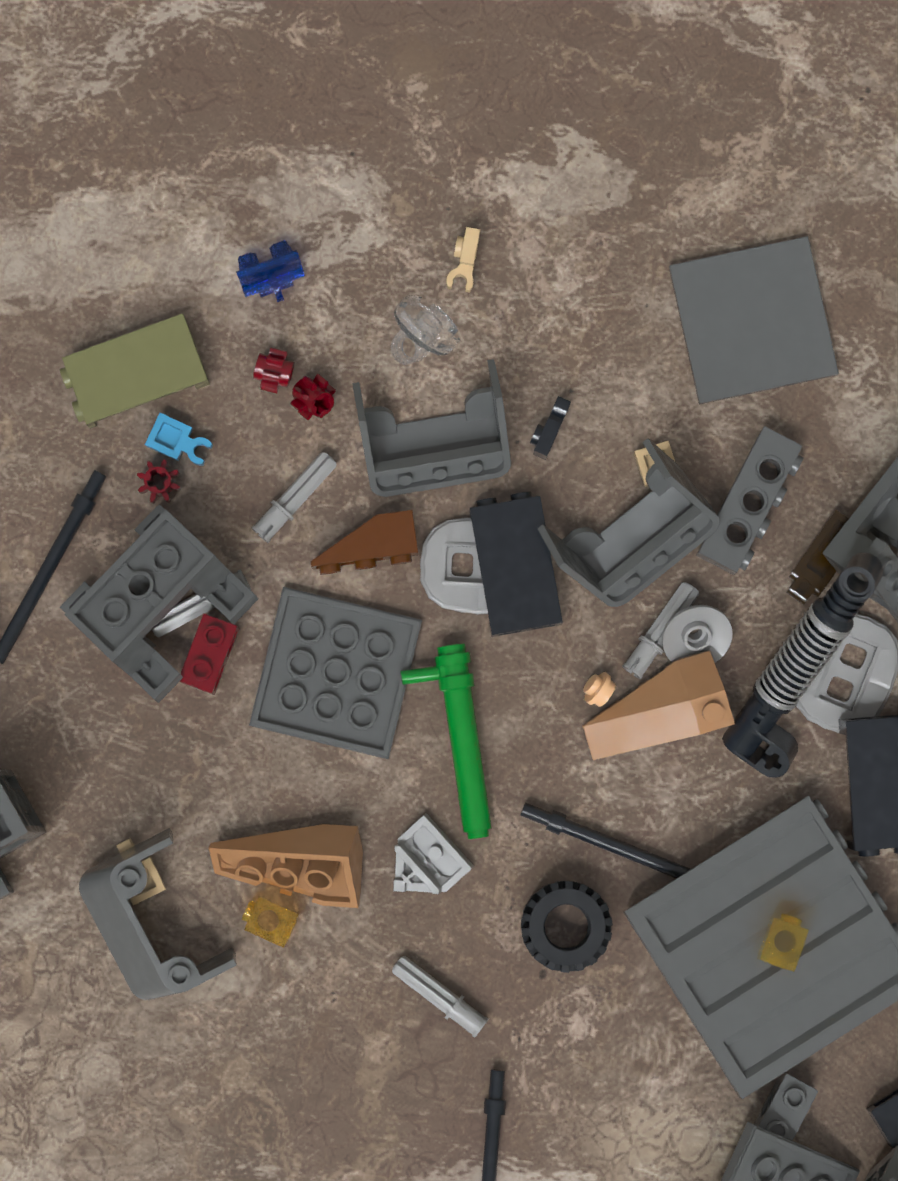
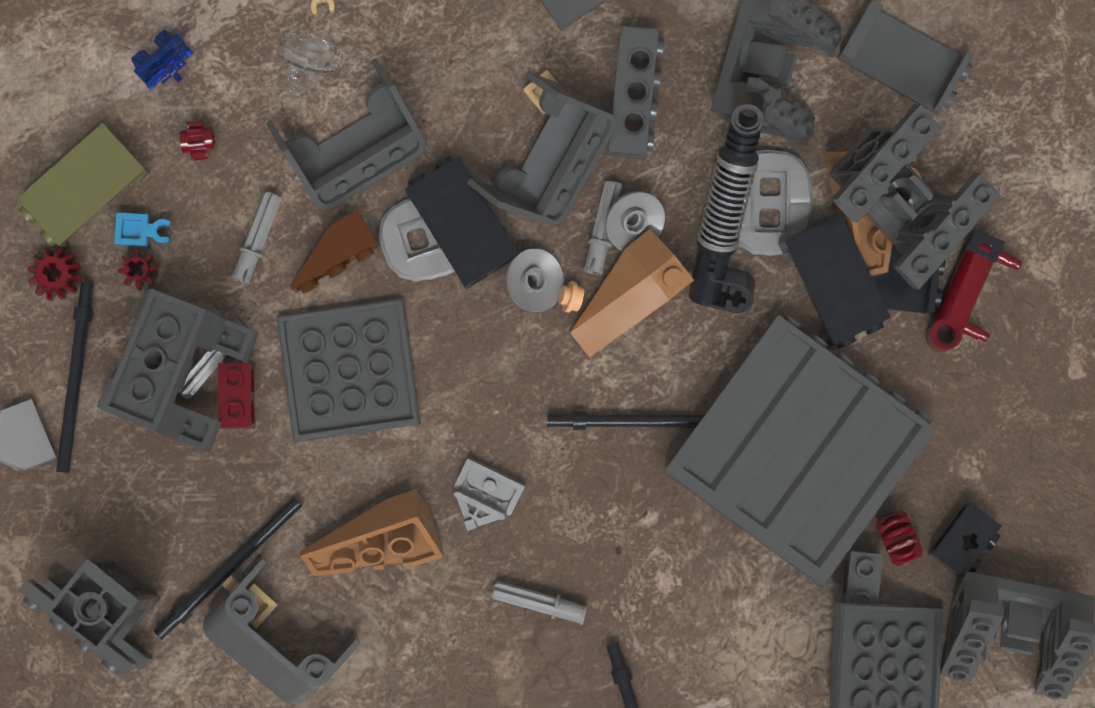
camera: 20 degrees left, 0 degrees up
(58, 456) = (47, 284): none -> dark red gear
(64, 856) = (182, 611): none -> black bar
(286, 924) = (389, 596): clear yellow brick -> none
(313, 397) = (238, 149): dark red gear -> none
(456, 685) = (451, 339): green cylinder -> none
(545, 435) = (444, 106): black plate -> none
(580, 659) = (546, 279): none -> light grey dish
(597, 917) = (649, 509): black tyre -> none
(770, 954) = (798, 457): clear yellow brick -> none
(813, 569) = (709, 127): dark brown hinge -> none
(842, 1080) = (899, 538): none -> dark red gear

